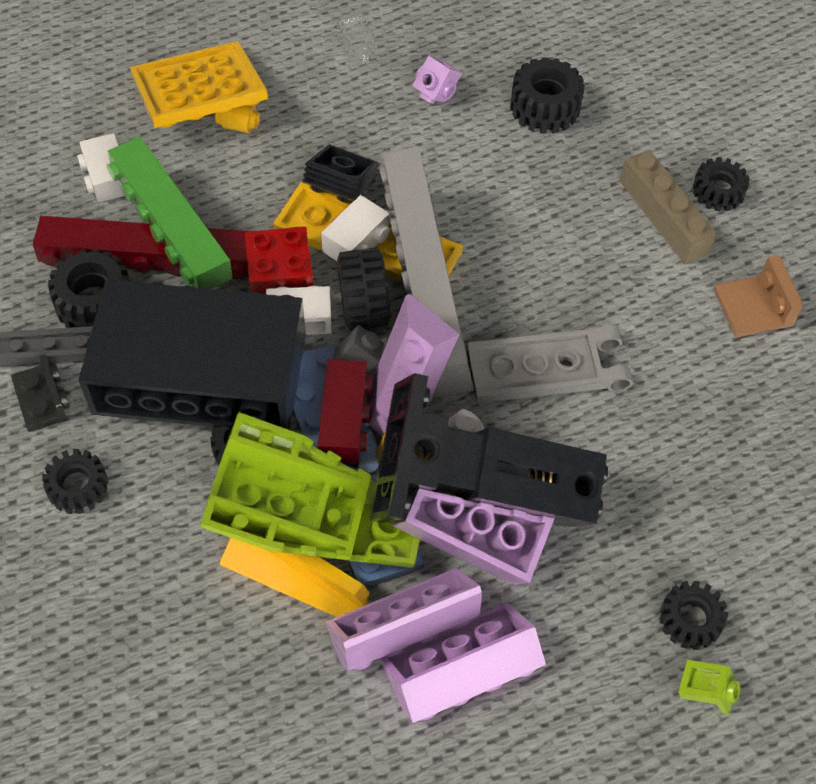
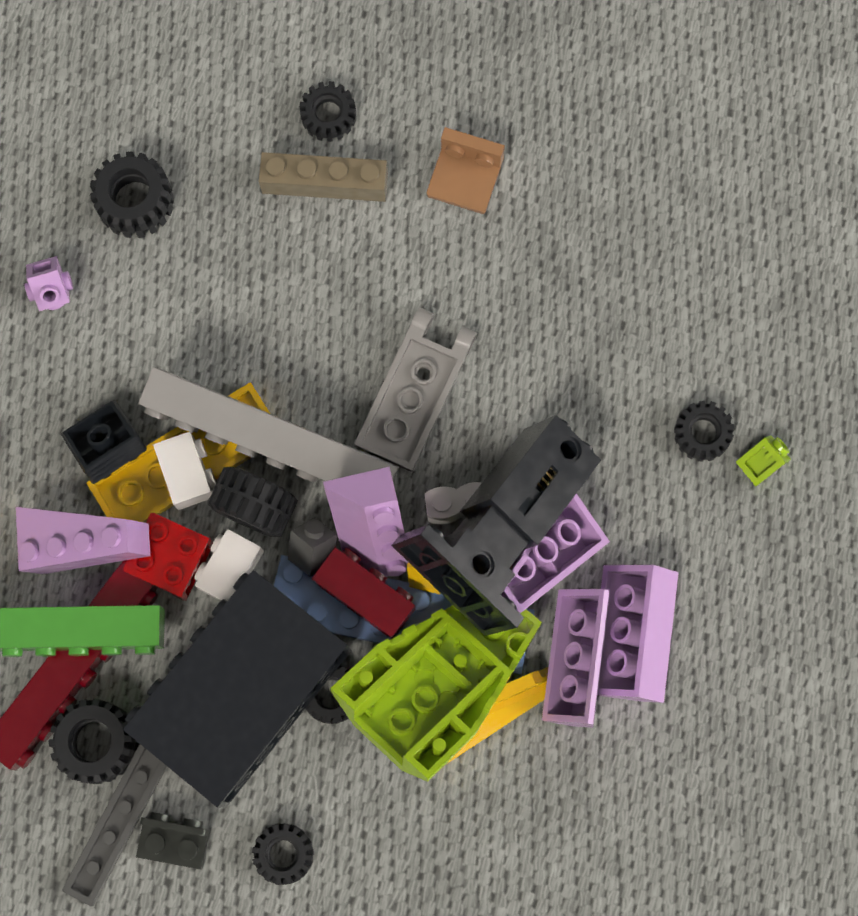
camera: 50 degrees left, 20 degrees up
(247, 190) = (71, 541): none -> lavender wedge

